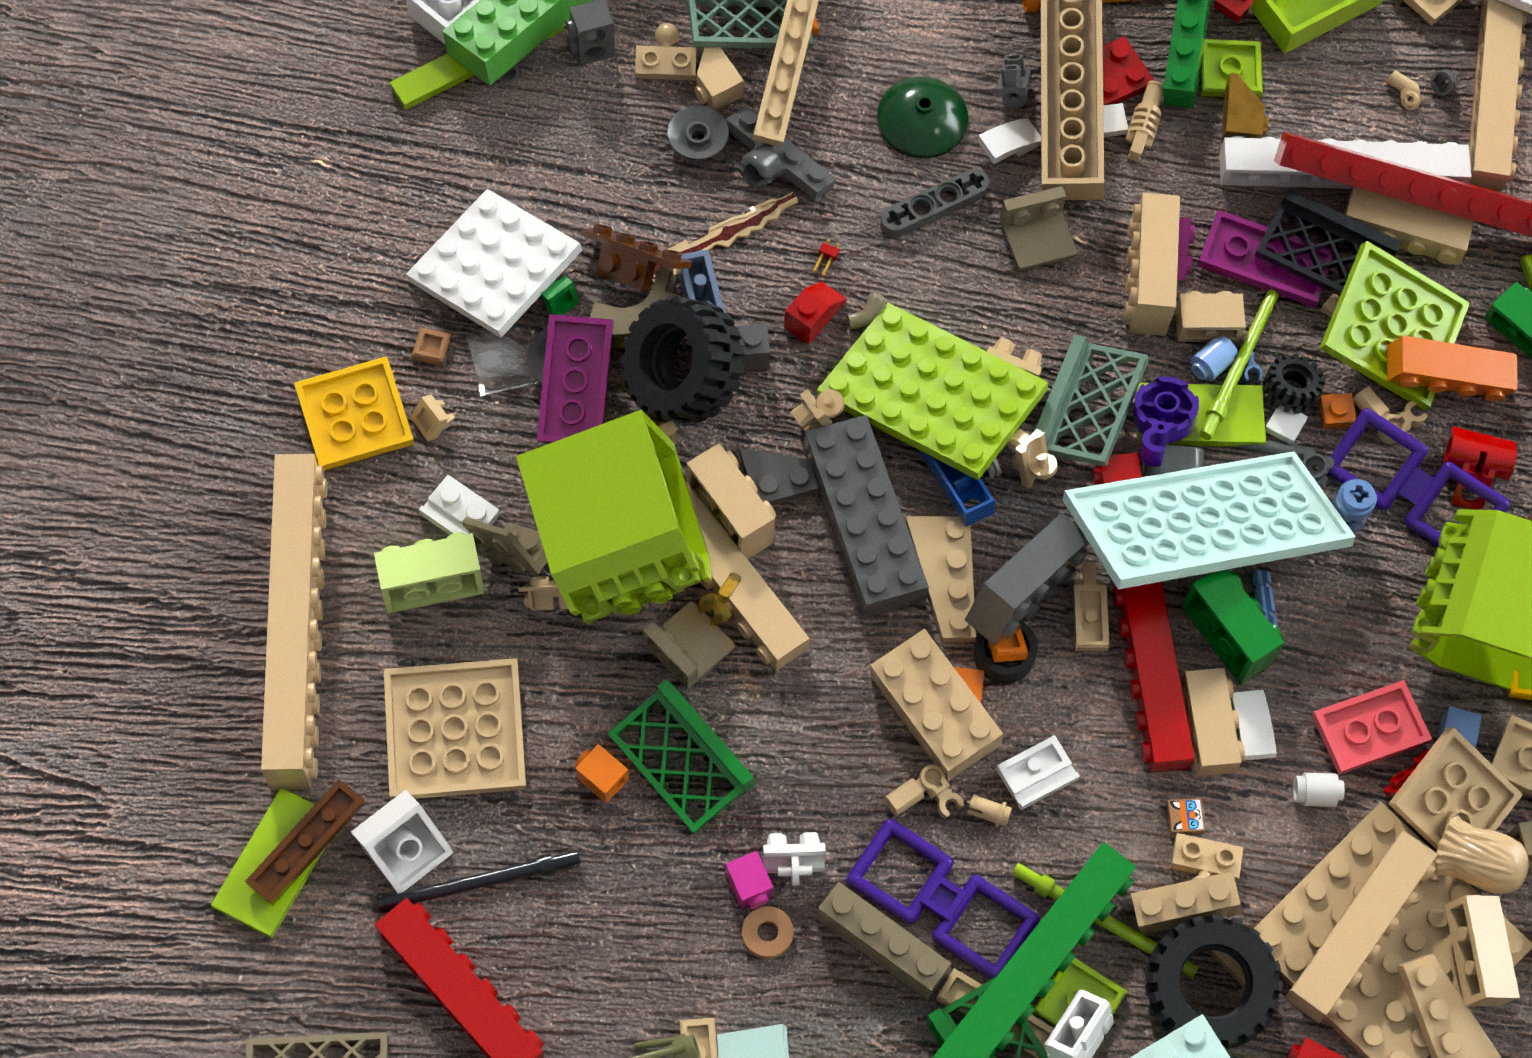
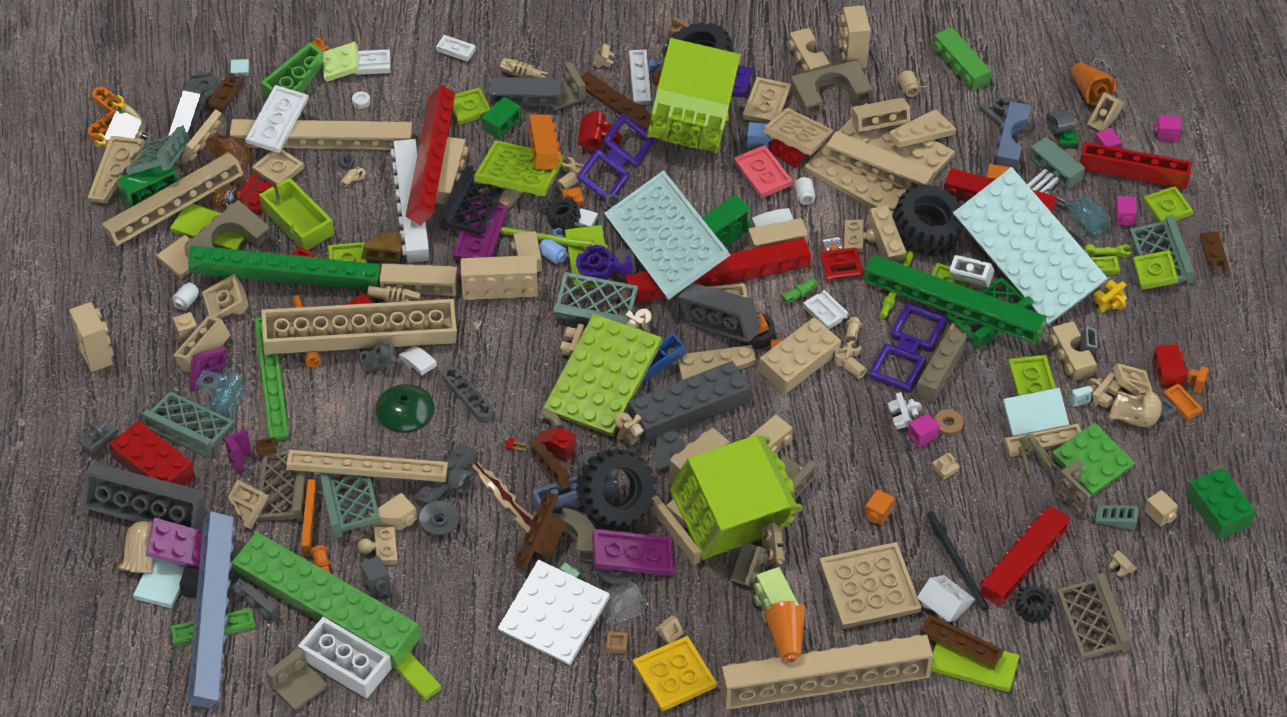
camera: 95 degrees left, 15 degrees down
(344, 545) = (787, 628): none -> orange cone
(365, 964) = (1034, 612): none -> black tyre
(454, 502) = (727, 608): white plate -> none
(674, 905) = (945, 466): none -> tan tile
(708, 744) = (842, 465): green fence -> none
(753, 280) = (549, 463): none -> reddish brown plate
(1037, 228) = (481, 339): dark tan bracket -> none
(1085, 737) = (799, 291): none -> bright green pin
(1150, 820) = (841, 259): none -> red plate
(1175, 147) = (420, 278): none -> tan brick
(1355, 506) = (636, 179): medium blue piece -> none
(1481, 857) = (829, 116): tan piece -> none

